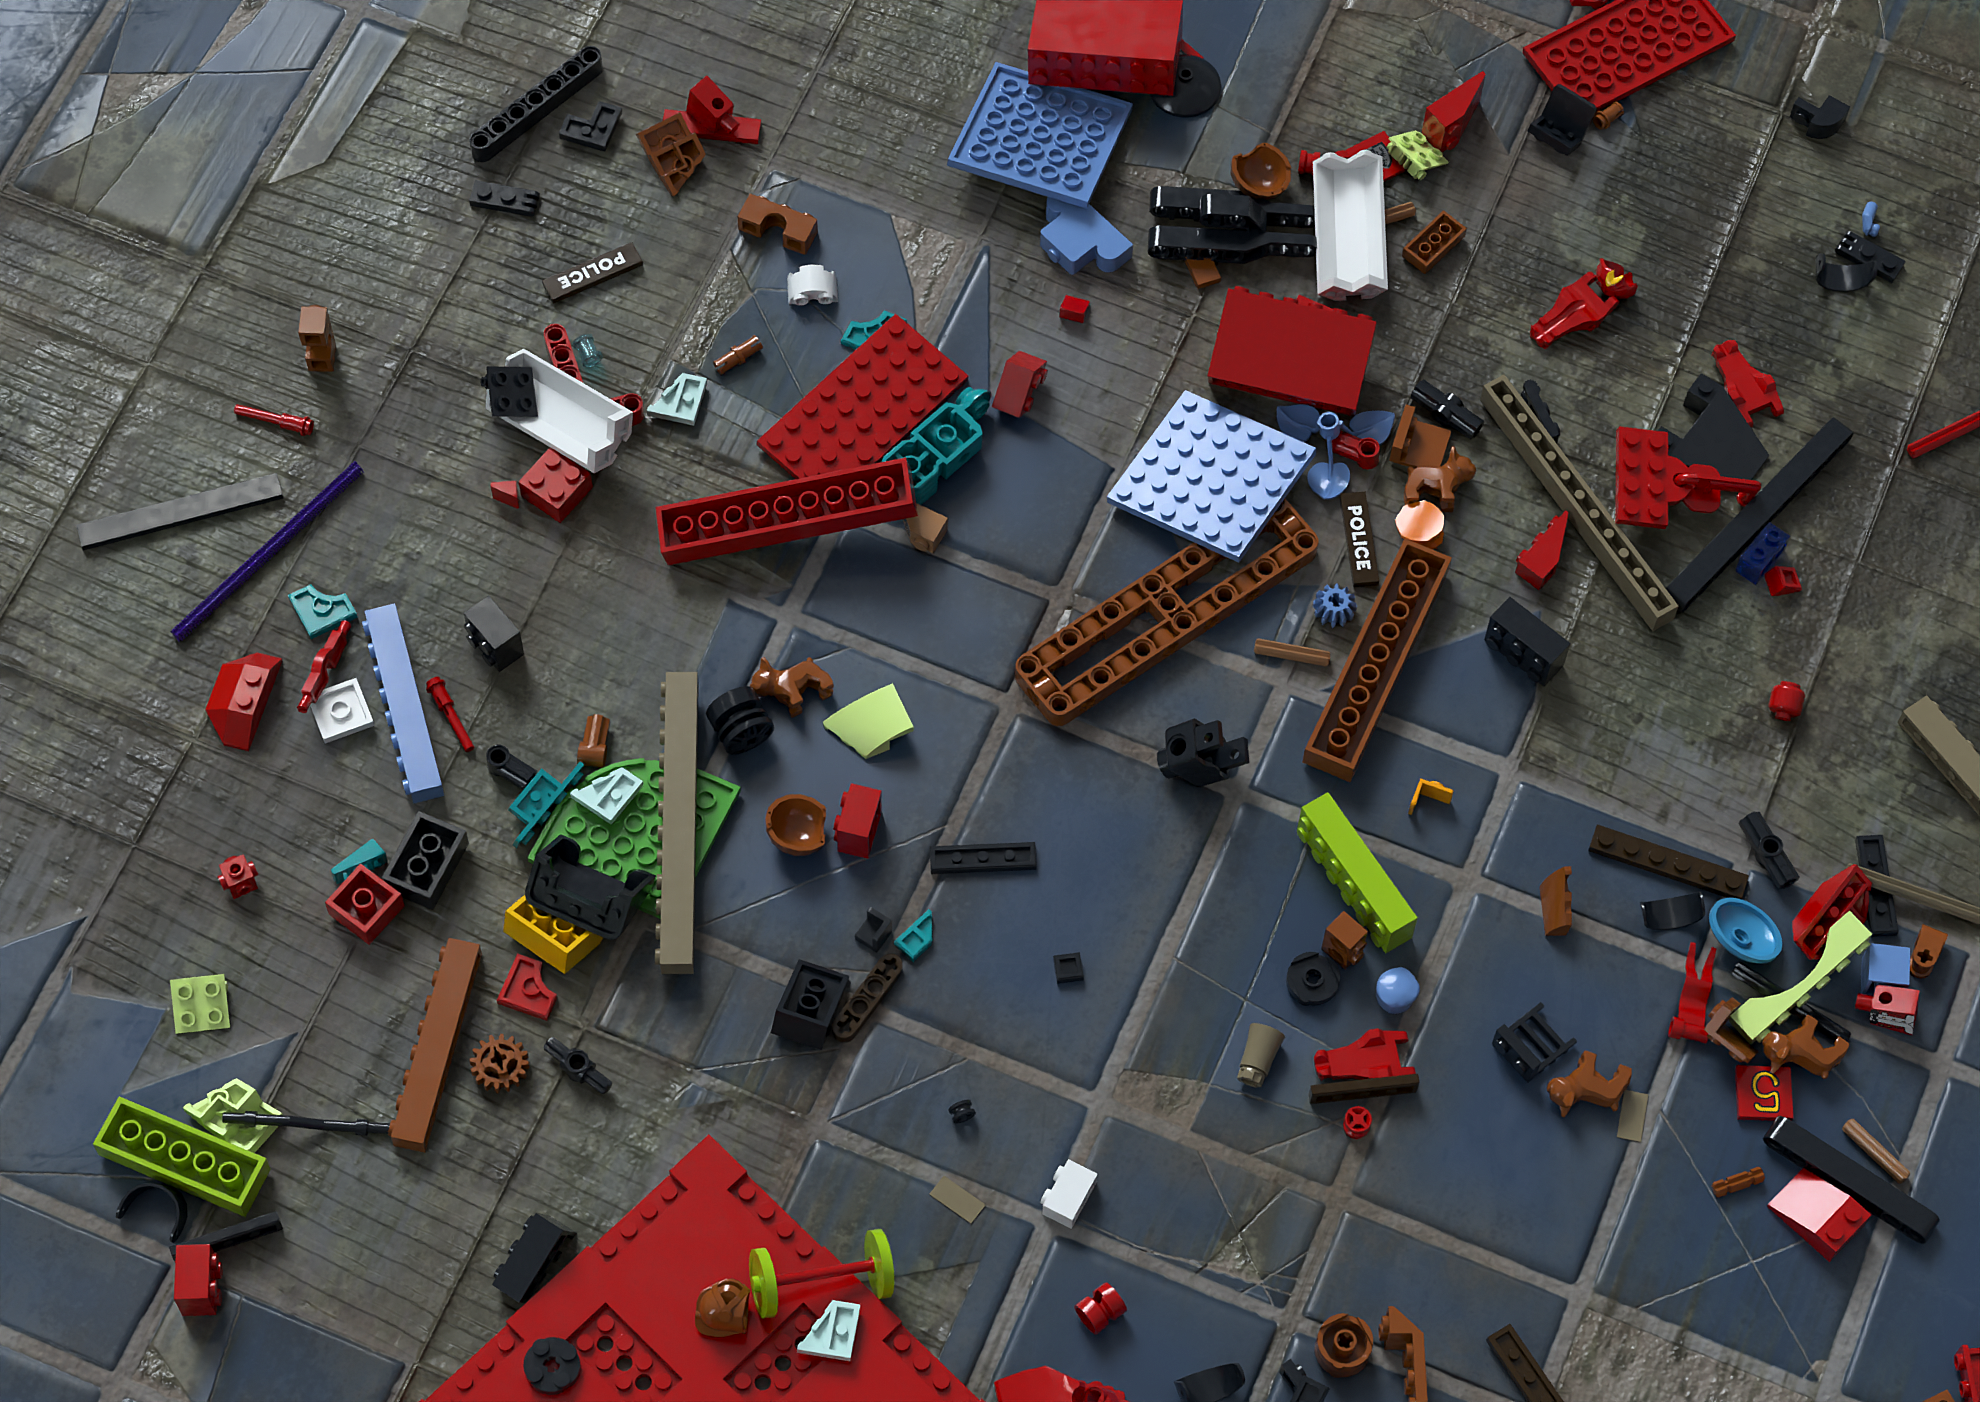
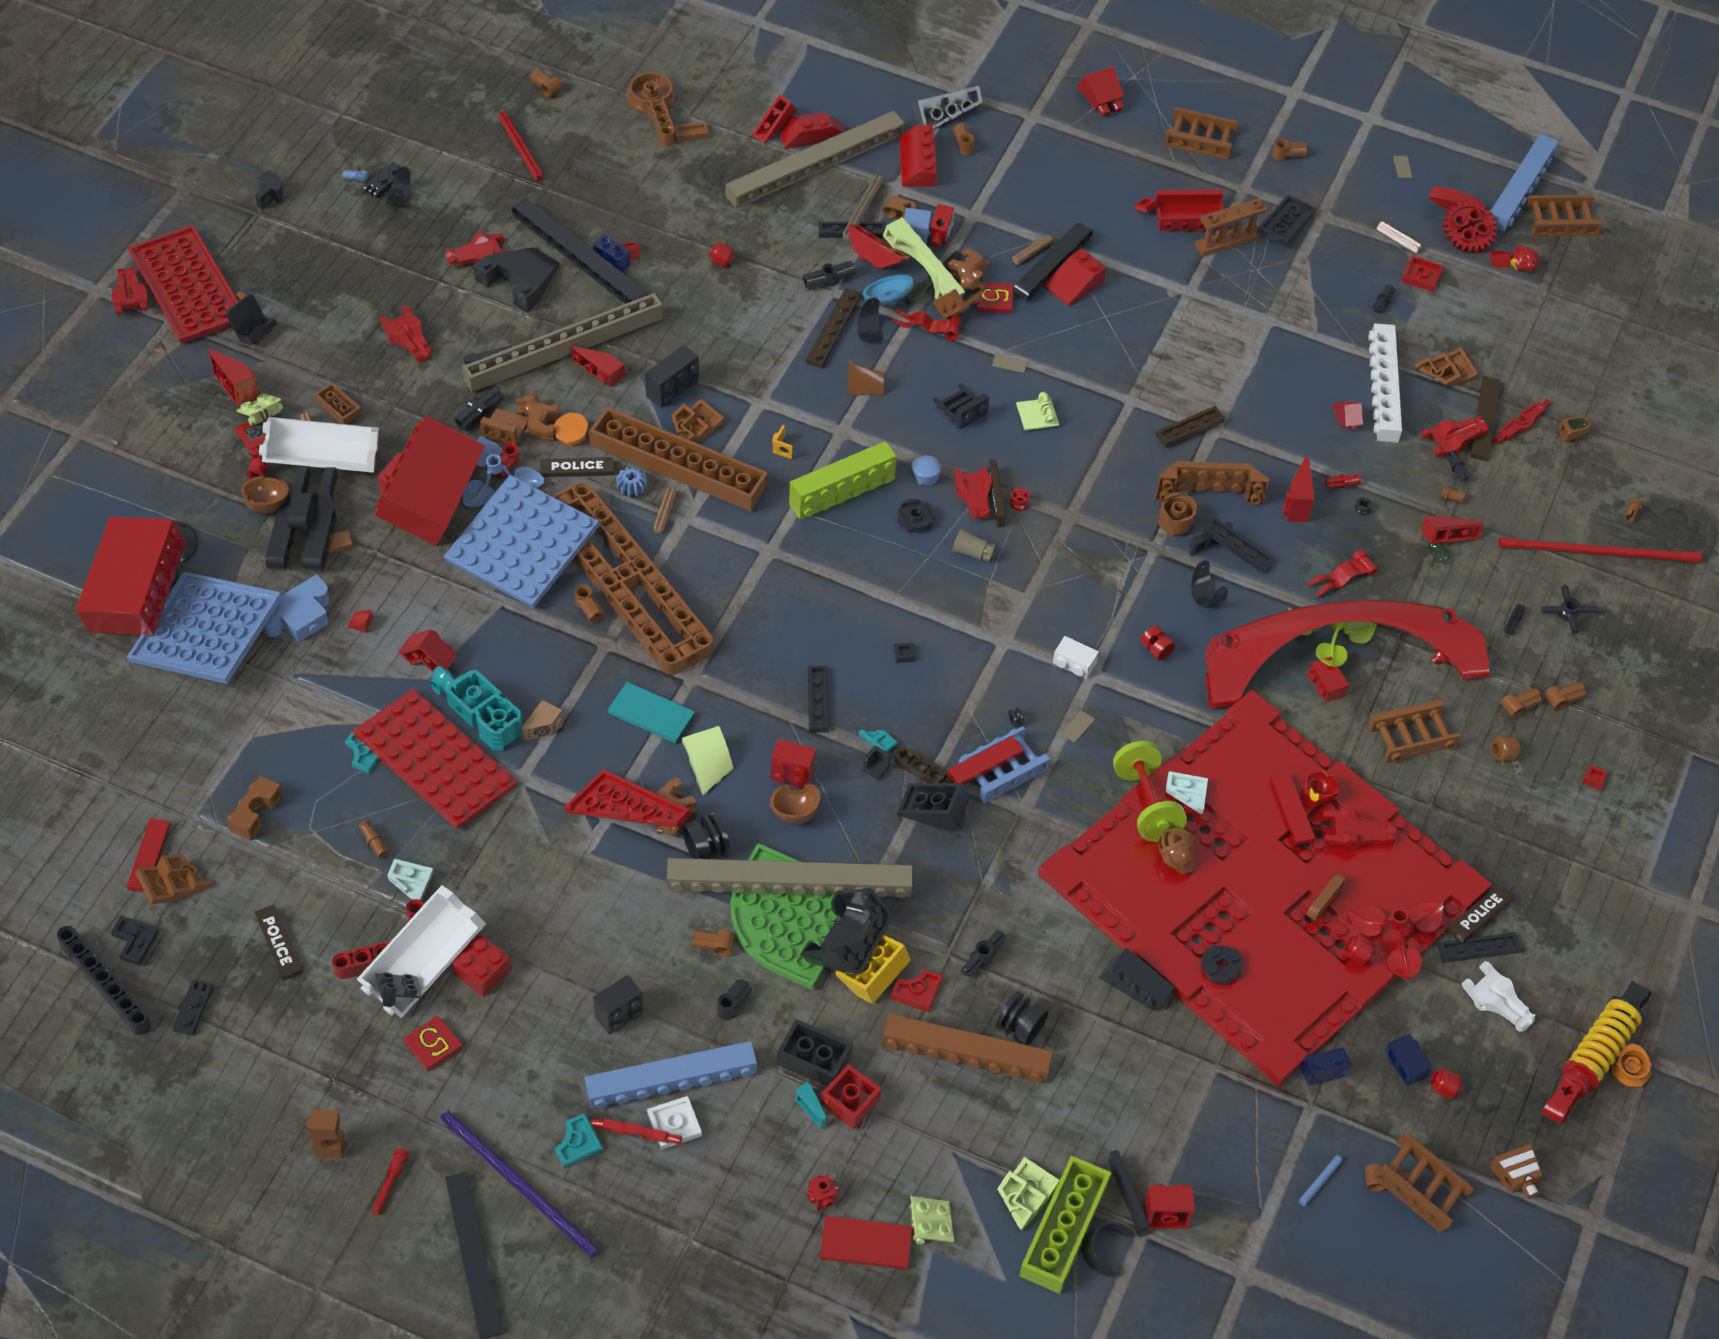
camera: 90 degrees left, 10 degrees down
(176, 930) = (866, 1242): none -> red tile
(241, 698) = (657, 1195): red wedge -> none
(252, 1119) = (1033, 1172): black bar -> none
(437, 688) = (670, 1047): red pin -> none
(454, 446) = (432, 1043): none -> red tile
(467, 1109) = (1024, 1020): none -> black wheel
(488, 1067) = (979, 1008): dark orange gear -> none
(506, 492) = (485, 1000): red slope -> none
(538, 798) = (763, 976): teal bracket -> none
(587, 350) = (355, 942): clear light blue bush -> none
(609, 794) = (764, 925): light aqua wing -> none
(711, 107) = (139, 843): red torso -> none
(786, 511) = (532, 797): red brick -> none
(793, 619) = (622, 800): none -> red wing
(812, 283) = (316, 789): white cylinder -> none
(867, 1117) = (1019, 775): none -> medium blue fence
(875, 1065) = (985, 761): none -> red tile
(948, 654) = (651, 712): none -> teal tile
(1116, 567) = (588, 603): none -> dark orange piece
(1193, 742) = (748, 548): black piece -> none
(1345, 940) = (892, 490): dark orange brick -> none
(1456, 683) = (697, 421): none -> dark orange slope
(1531, 1152) = (1037, 413): none -> yellowish green hinge
(1589, 1085) = (992, 377): dark orange animal -> none
(1614, 281) = (389, 308): red hair -> none
(1647, 483) = (557, 291): red plate -> none
(1738, 1182) = (1055, 315): dark orange axle -> none

